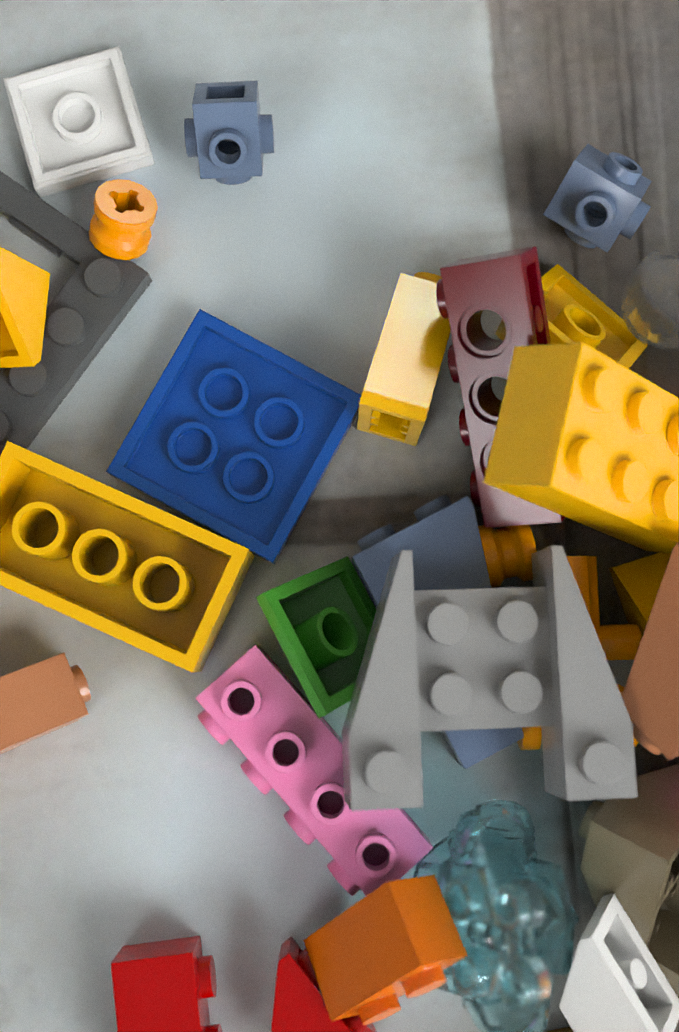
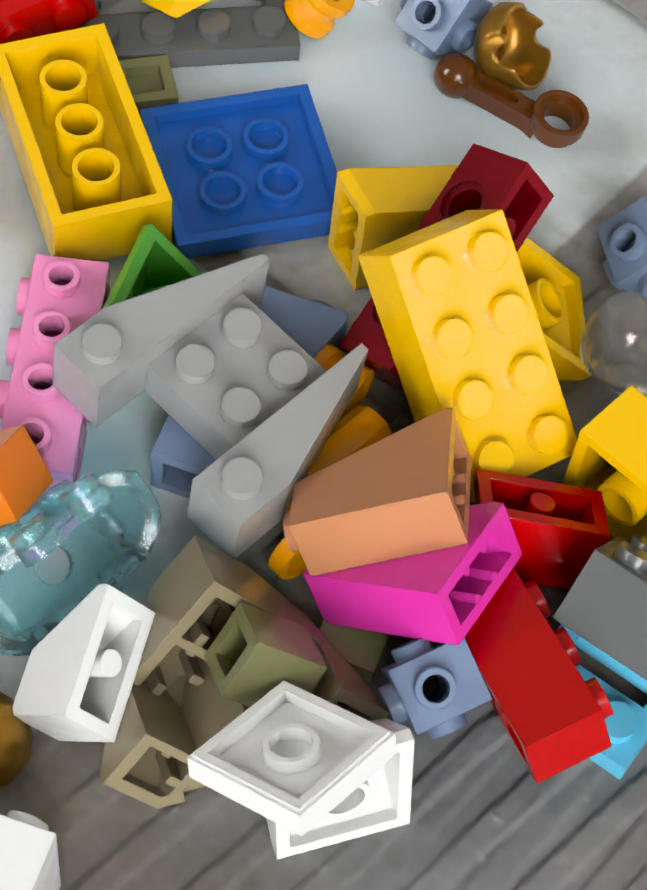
camera: 40 degrees right, 25 degrees down
(75, 435) = (150, 81): none -> olive tile
(294, 174) = (459, 78): none -> reddish brown piece
(308, 108) = (509, 48): none -> pearl gold hair

